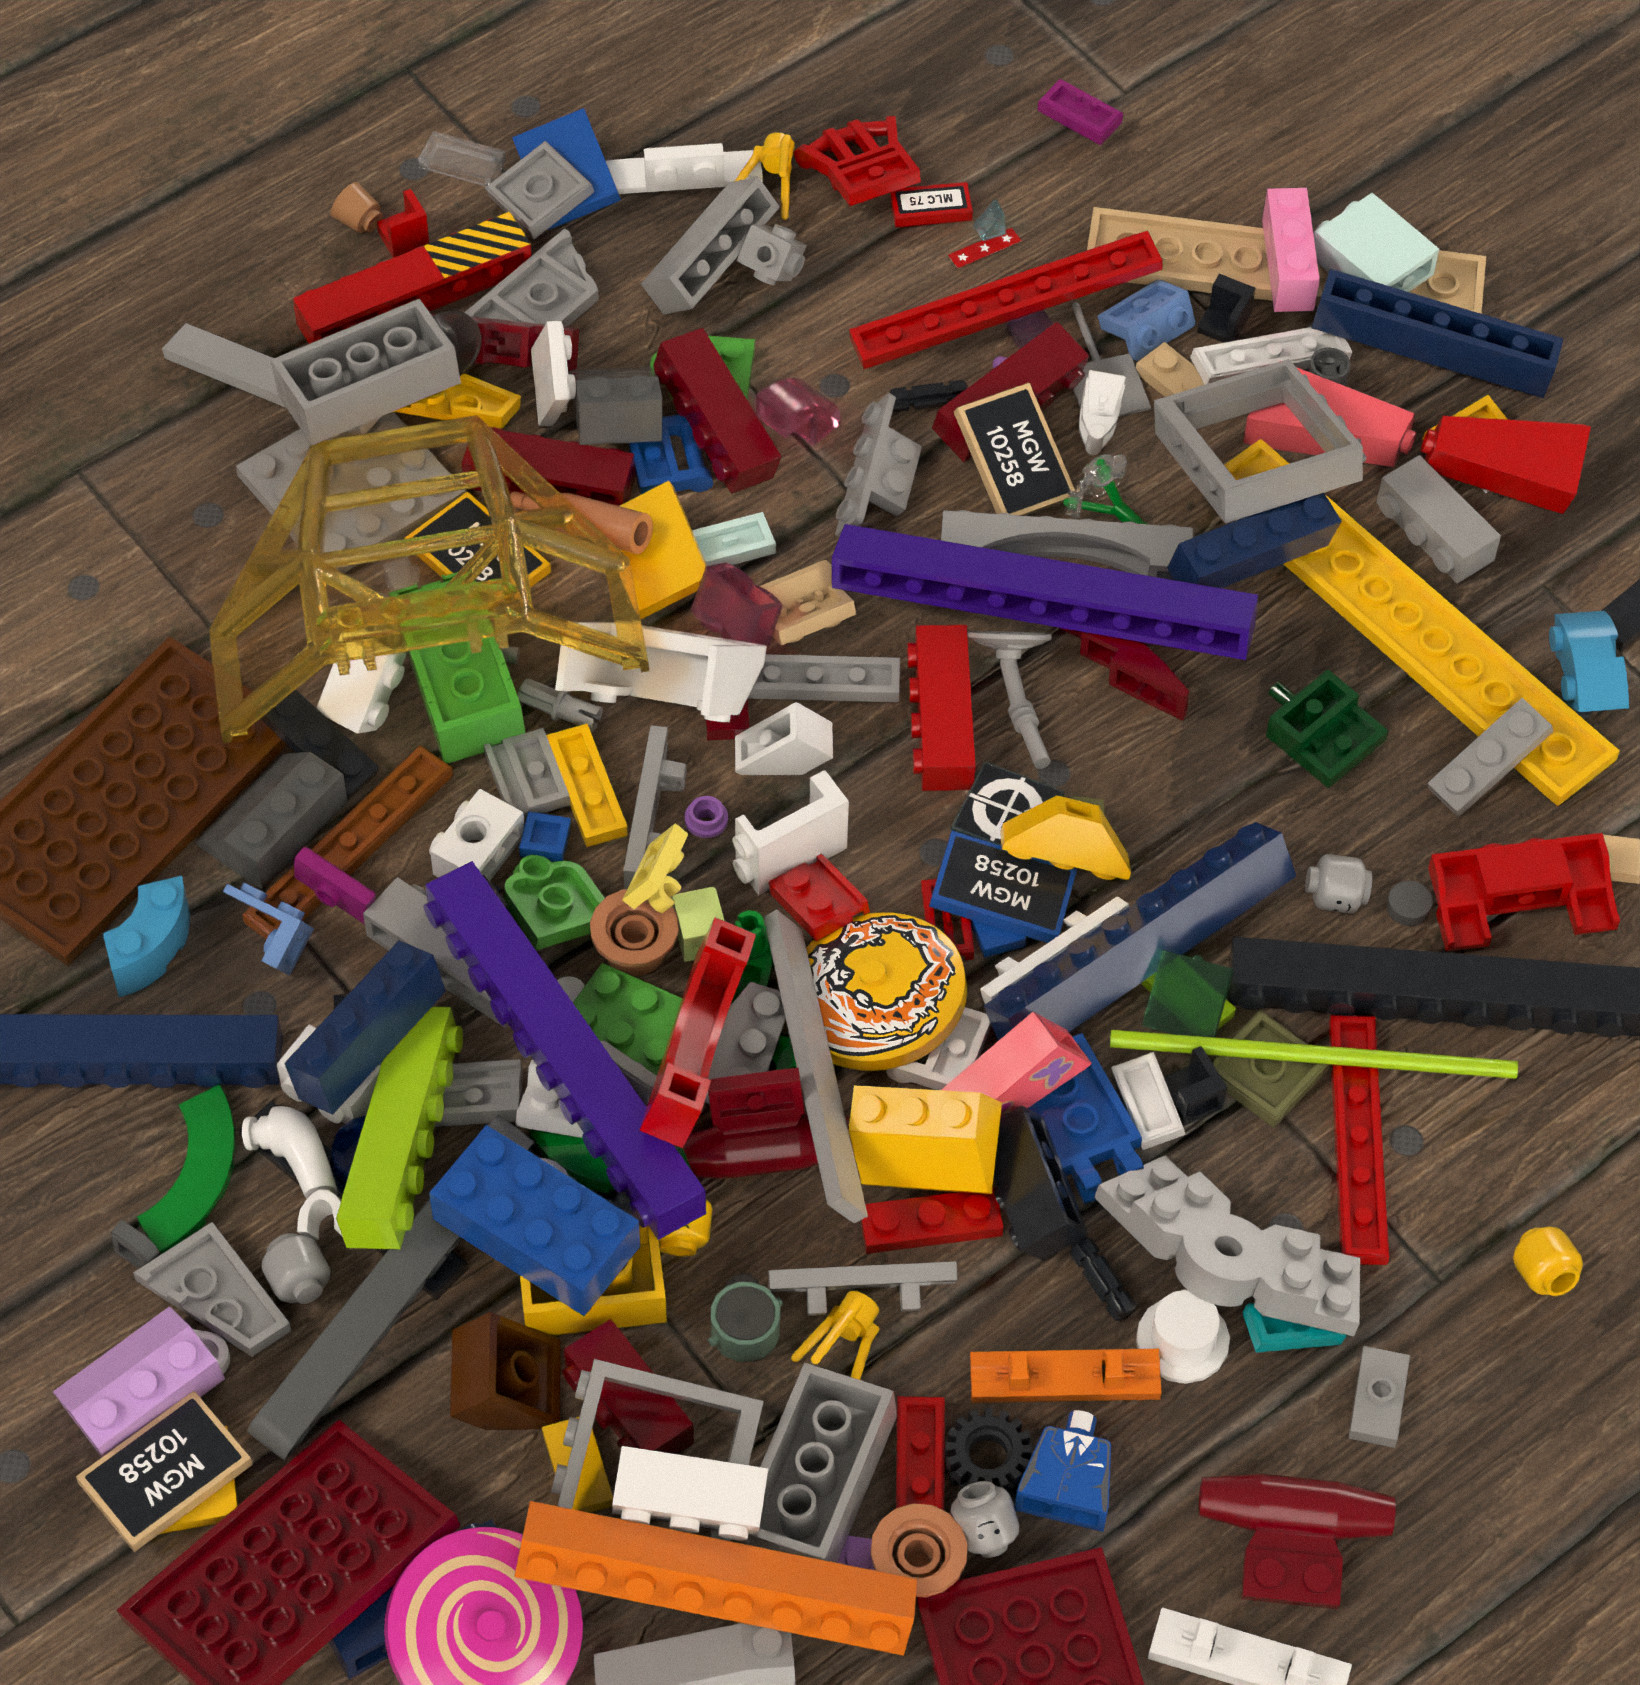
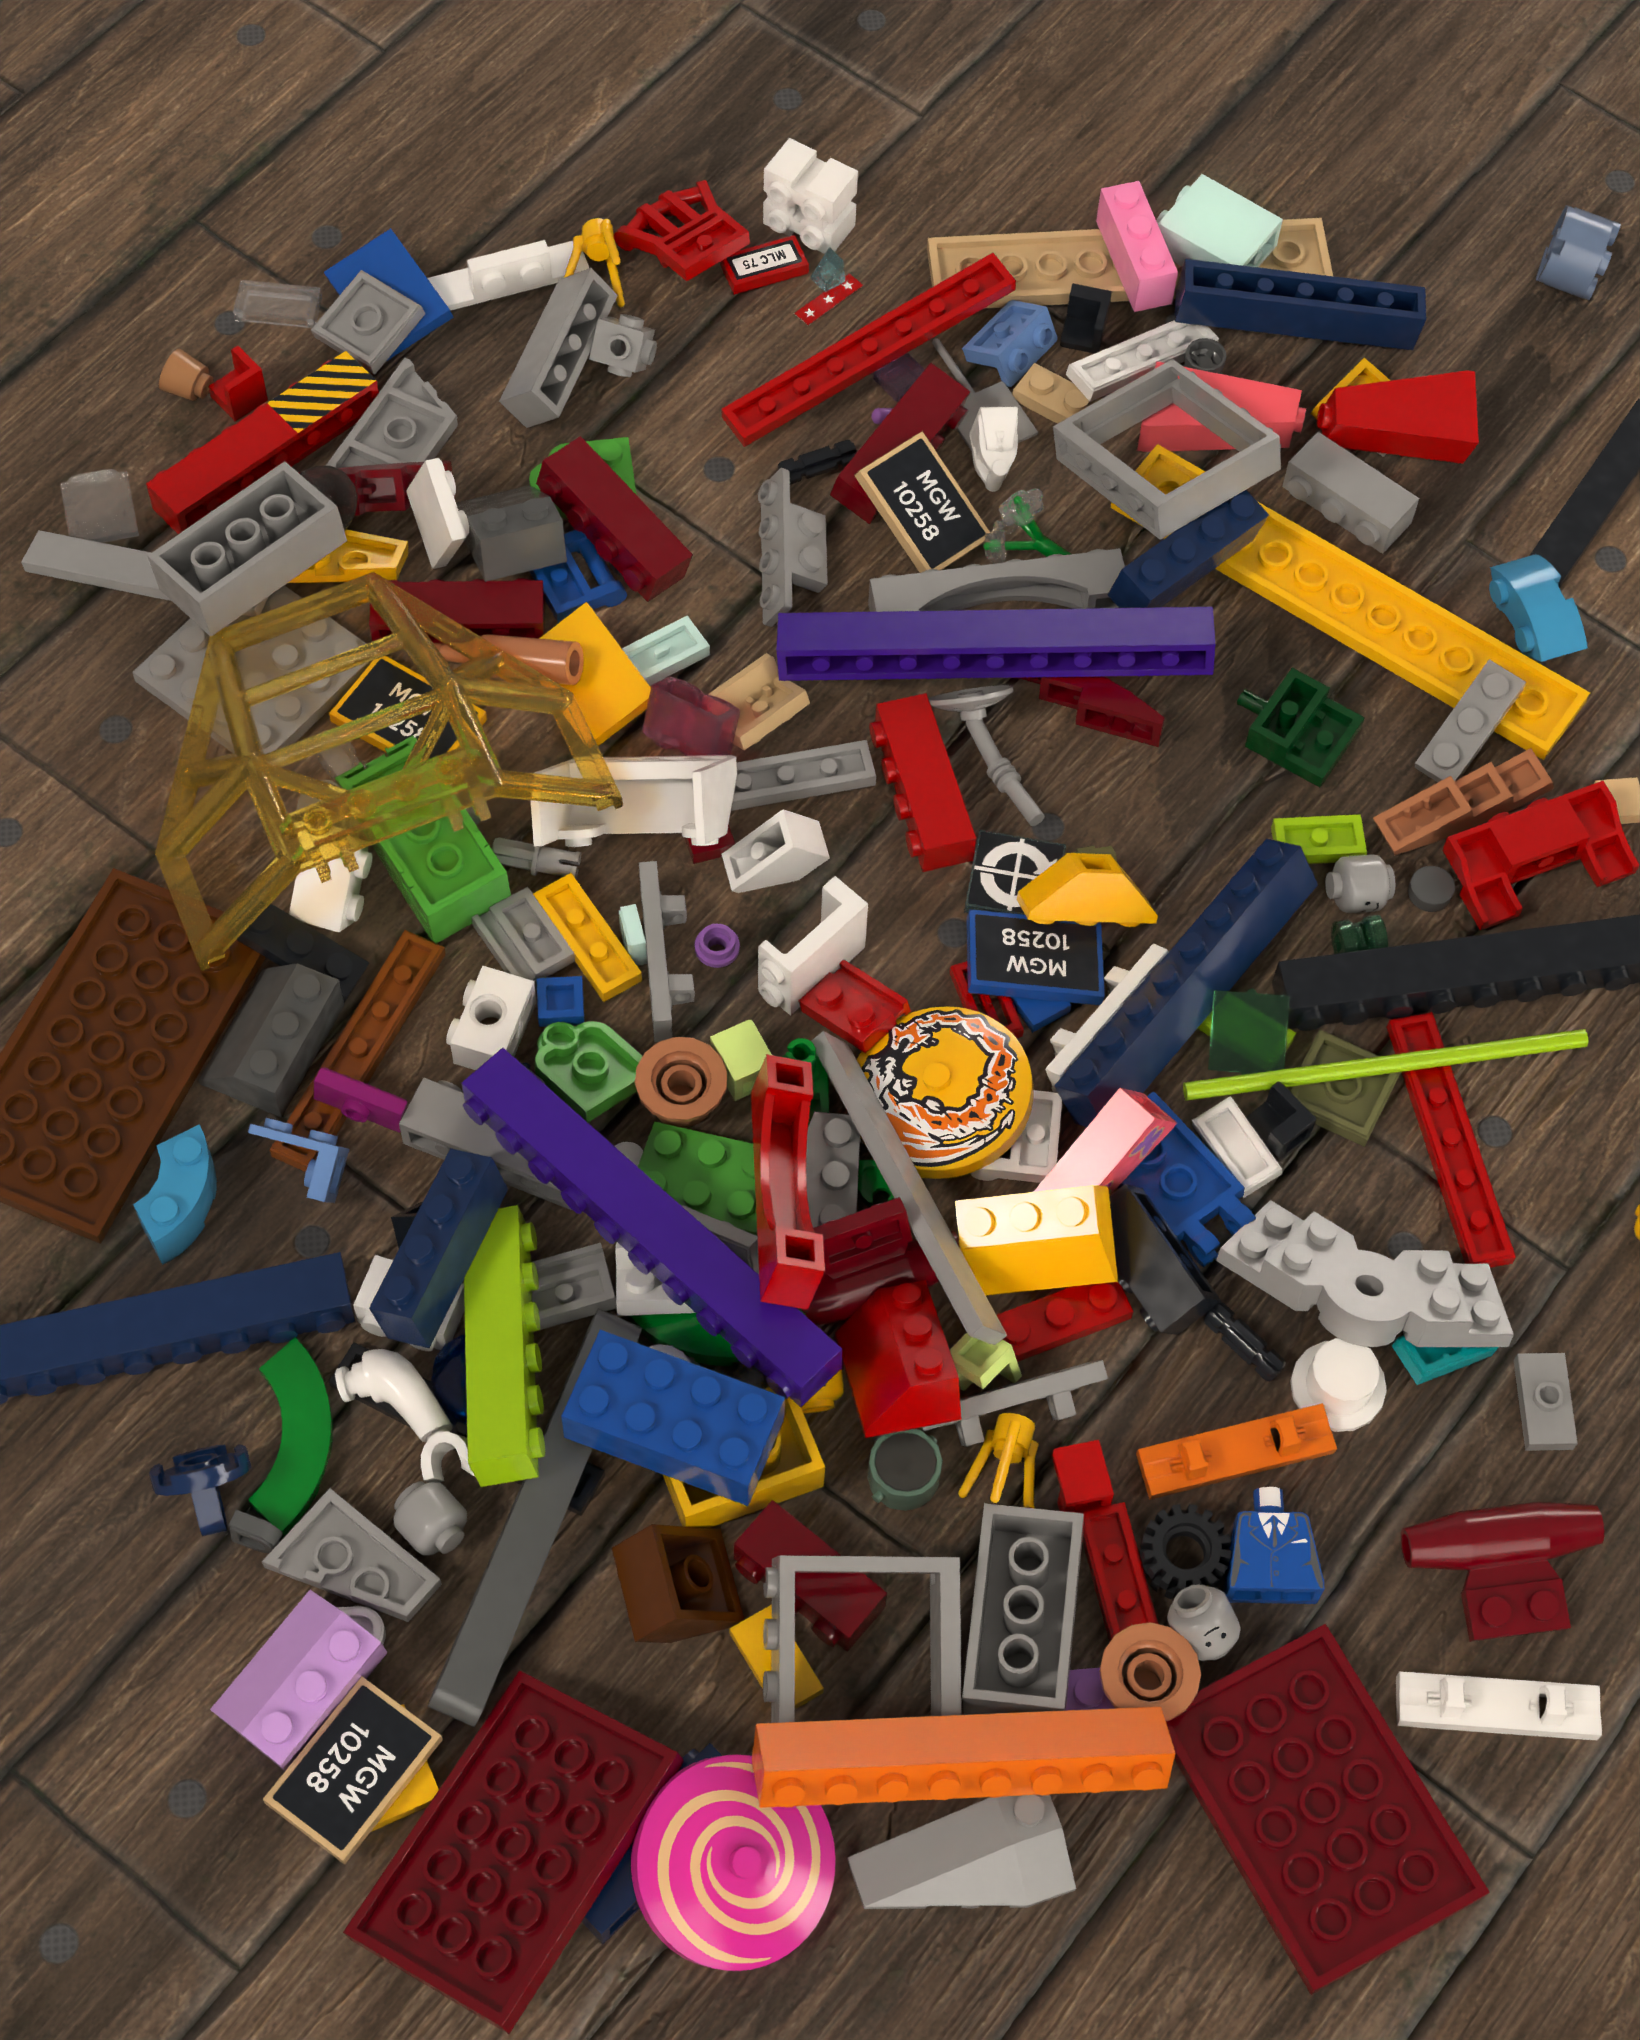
camera: 15 degrees left, 5 degrees up
(99, 1185) = (201, 1475): none -> dark blue tile
(248, 312) = (99, 506): none -> clear piece
(628, 789) = (633, 934): none -> light aqua tile
(651, 875) = (687, 1016): light yellow plate -> none
(689, 1492) = (914, 1674): white brick -> none
(763, 1221) = (899, 1362): none -> red slope
(798, 408) = (694, 503): clear pink brick -> none
(838, 1237) = (982, 1362): none -> yellowish green panel
(908, 1363) = (1082, 1477): none -> red panel
(987, 148) = (809, 197): none -> white brick
(1080, 111) = (885, 142): magenta plate -> none
(1314, 834) = (1322, 837): none -> lime plate
(1314, 928) = (1359, 936): none -> clear green wheel
(1472, 826) = (1463, 803): none -> nougat slope

